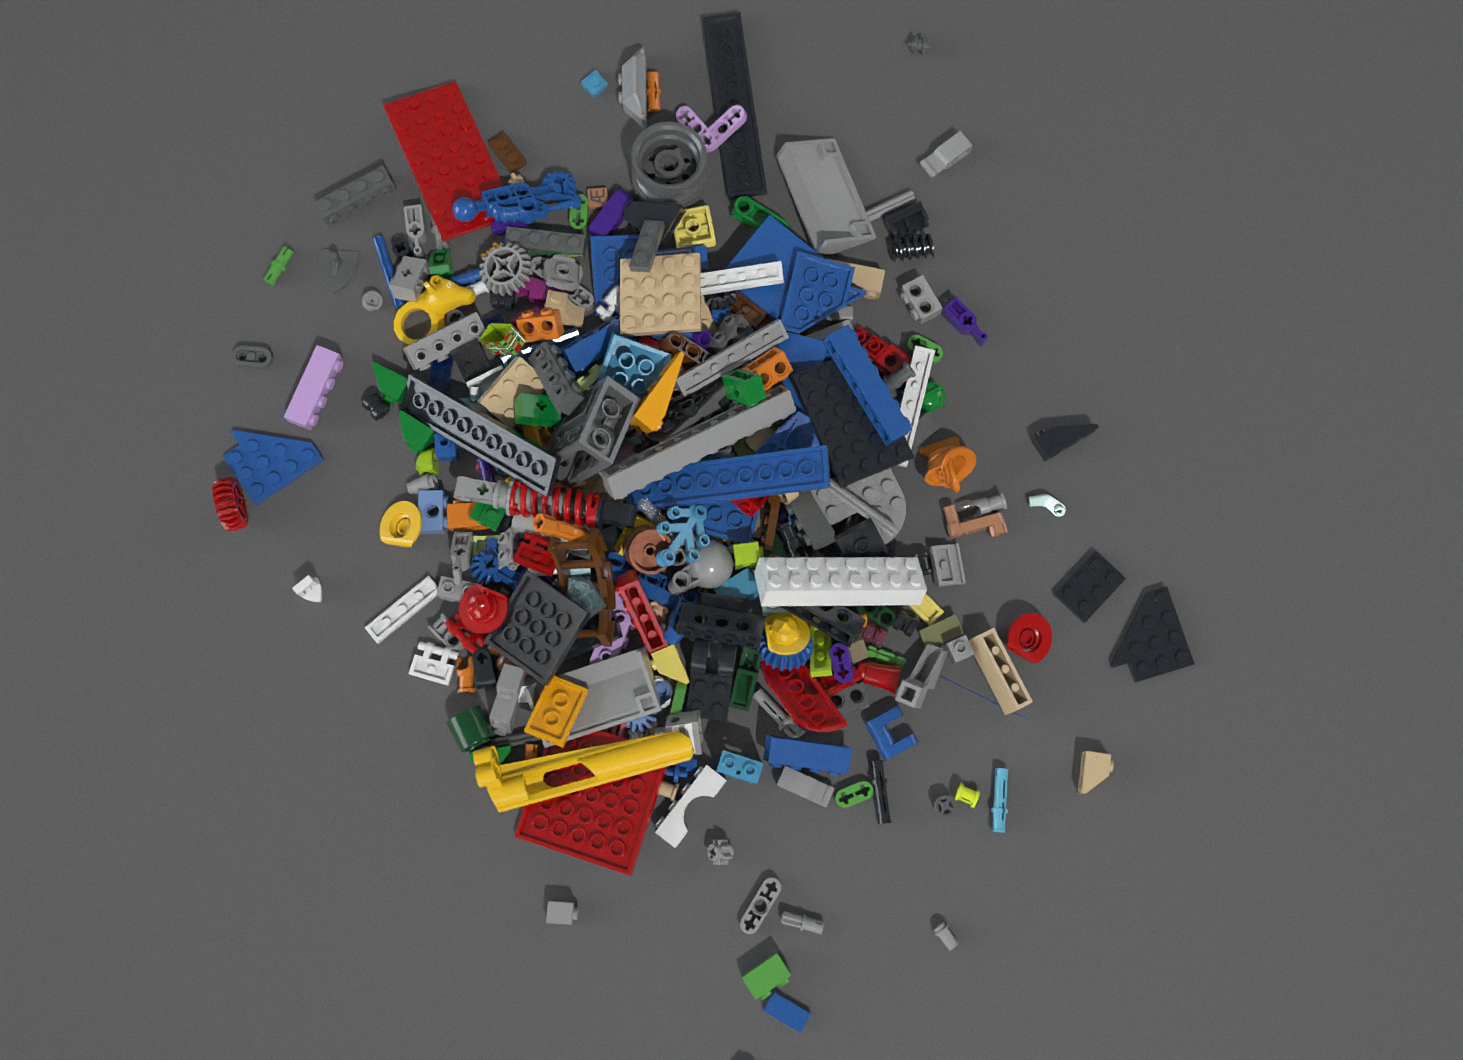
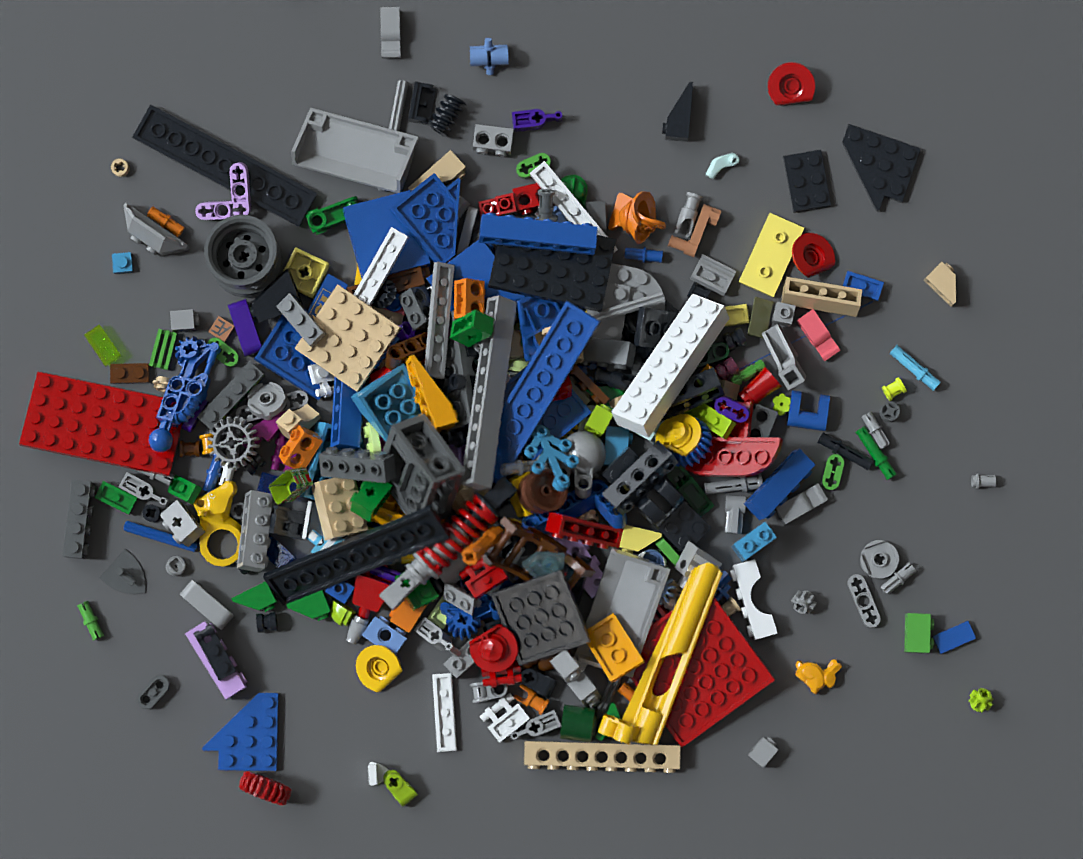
camera: 55 degrees left, 5 degrees up
(308, 619) = (401, 790): none -> lime piece
(316, 379) = (215, 653): none -> black plate
(356, 348) = (206, 604): none -> light grey beam
(394, 213) = (116, 497): none -> green plate
(412, 715) = (671, 752): none -> tan brick
(451, 696) = (543, 728): none -> light grey piece
(461, 464) = (367, 593): none -> red torso
(478, 242) = (189, 448): none -> reddish brown bush
(514, 115) = (102, 345): none -> clear neon green plate
(544, 158) = (157, 342): none -> bright green tile
(581, 162) = (184, 320): none -> light grey brick
(661, 911) = (815, 676): none -> light orange animal
(674, 33) = (121, 173): none -> tan bush
(755, 733) = (734, 517): none -> light grey piece
(809, 904) = (888, 565): none -> light grey plate
(880, 705) = (781, 404): none -> lime plant
(899, 820) = (876, 453): none -> green pin
(919, 494) = (643, 254): none -> blue axle
(919, 805) = (875, 430): none -> light grey axle
(964, 693) = (818, 334): none -> coral piece
(988, 246) = (489, 56): none -> medium blue pin
(1001, 602) = (770, 255): none -> light yellow plate
(1039, 709) = (870, 287): none -> blue plate
(1162, 511) = (791, 84): none -> red hat

